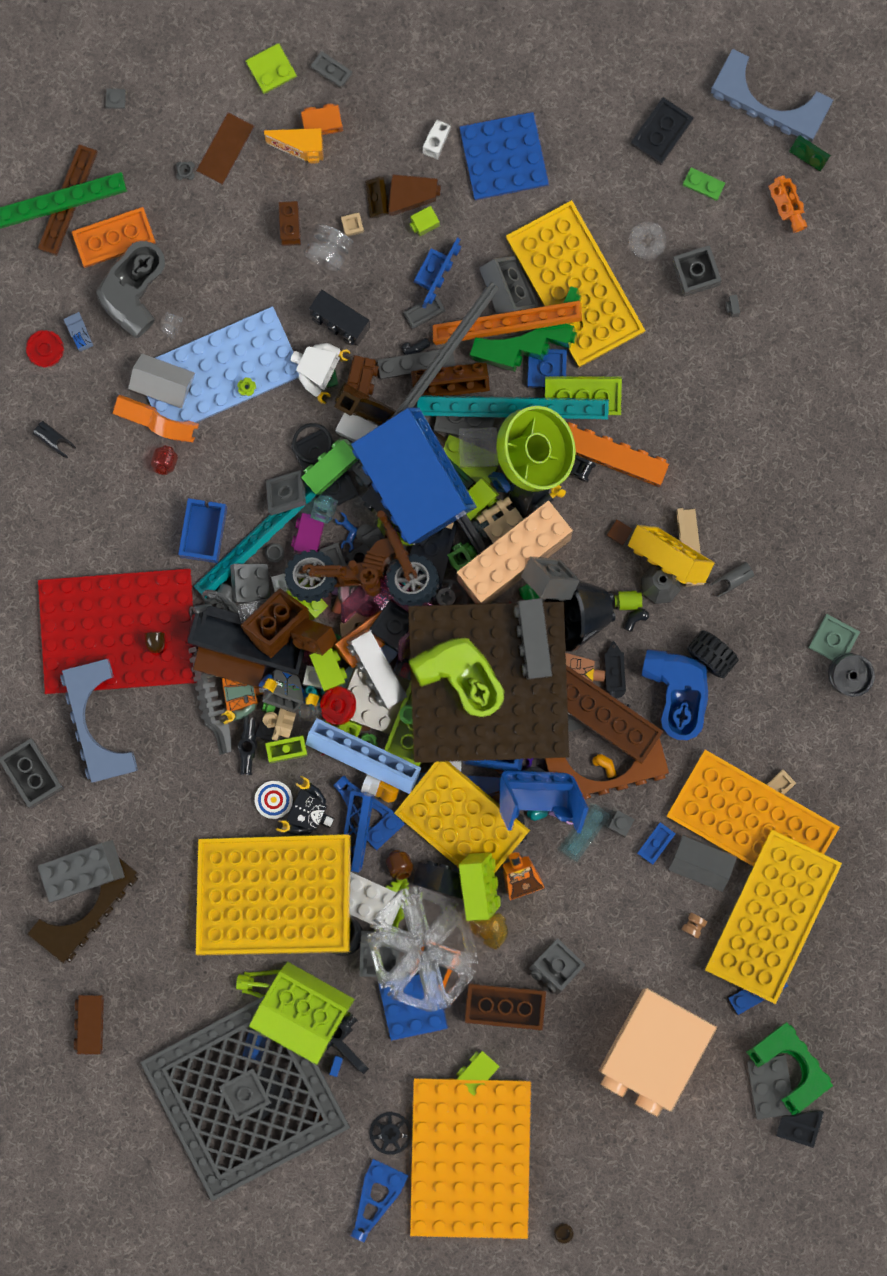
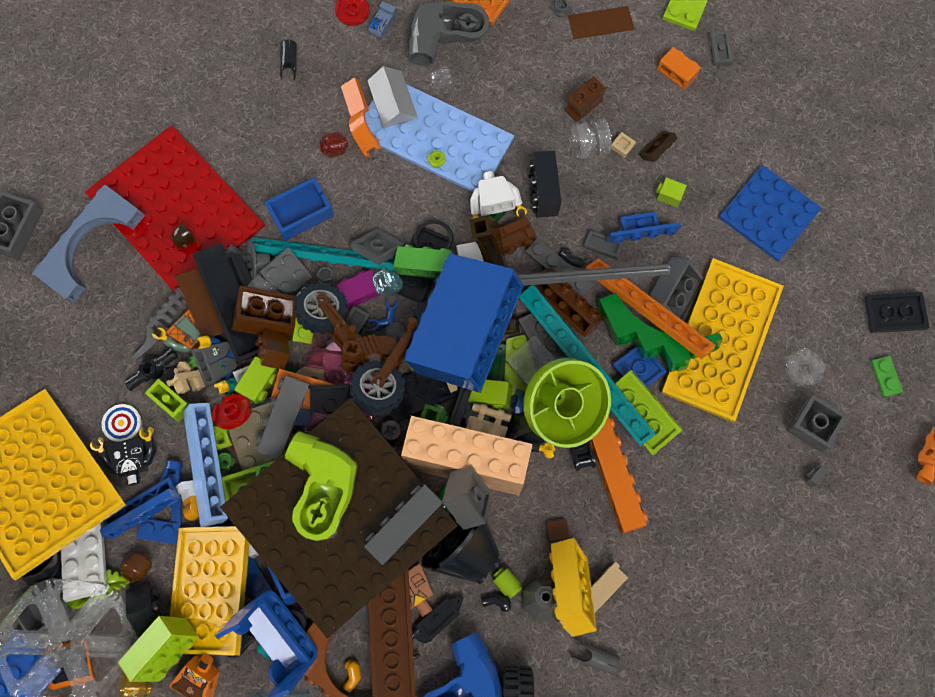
camera: 45 degrees right, 10 degrees down
(301, 143) = (650, 61): light orange slope -> none
(411, 193) = (684, 167): reddish brown slope -> none
(436, 139) = (738, 155): white leg -> none

